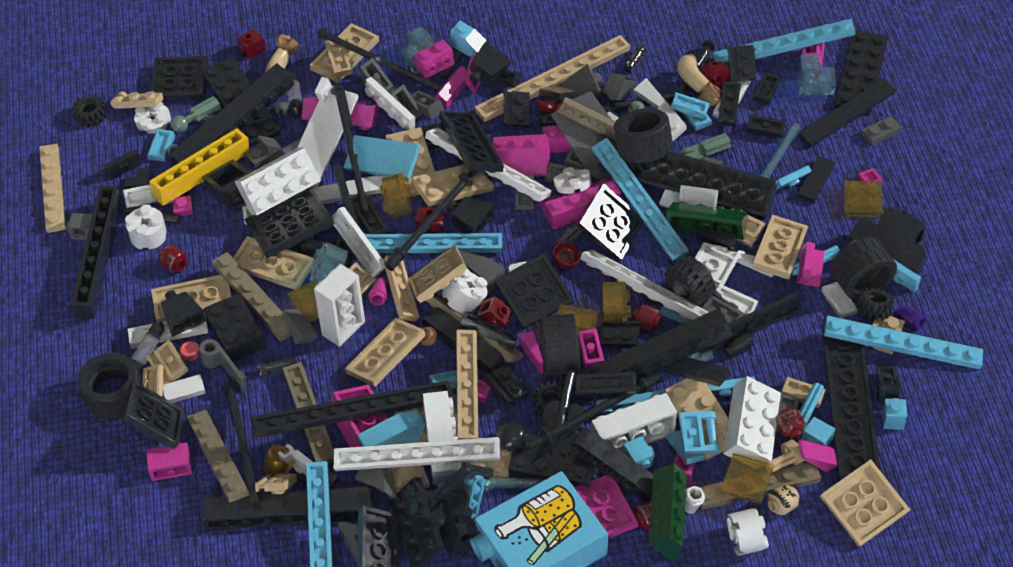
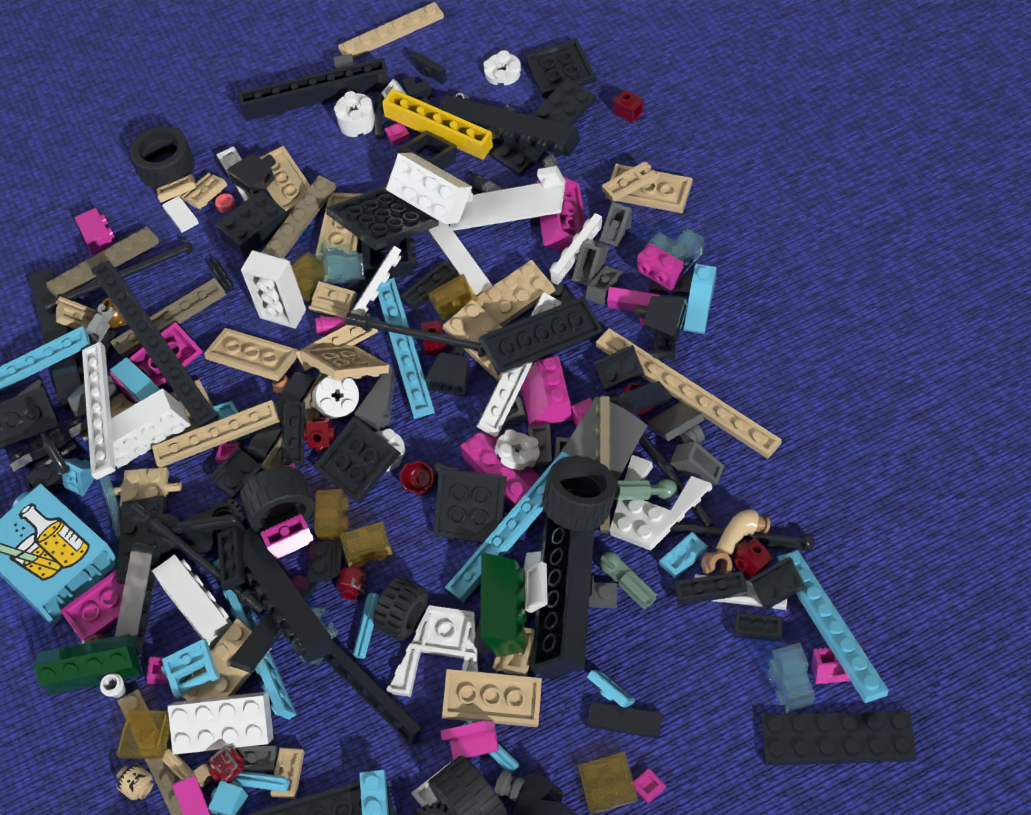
camera: 80 degrees right, 5 degrees up
(87, 103) = (492, 26): black tyre -> none
(136, 100) = (514, 47): tan plate -> none
(147, 345) = (209, 166): clear piece -> none
(153, 415) = (123, 195): black plate -> none
(160, 145) = (473, 88): medium azure tile -> none
(172, 259) = (324, 148): dark red head -> none
(206, 108) = (516, 99): sand green piece -> none
(213, 356) = (213, 213): dark grey door -> none
(262, 152) = (488, 169): dark grey slope -> none
(282, 55) = (602, 137): piece -> none
(295, 97) = (579, 164): piece -> none
(322, 33) = (645, 155): black bar -> none
(344, 193) = (434, 256): black tile -> none
(346, 121) = (519, 215): black bar -> none
(383, 156) = (500, 267): medium azure tile -> none
(511, 436) = (153, 489): black hair -> none
(635, 58) = (754, 467): black axle -> none
(639, 452) = (168, 621): medium azure brick -> none
(642, 285) = (391, 567): white plate -> none
(689, 105) = (682, 542): medium azure plate -> none
(729, 312) = (382, 659): dark grey plate -> none
(739, 345) = (339, 688): black cone -> none
(746, 531) = (78, 749): white brick -> none
(766, 126) = (691, 640): black plate -> none
(789, 136) = (686, 672): clear light blue piece -> none
(847, 112) = (746, 732): black tile -> none
(881, 130) = (738, 784): dark grey plate -> none

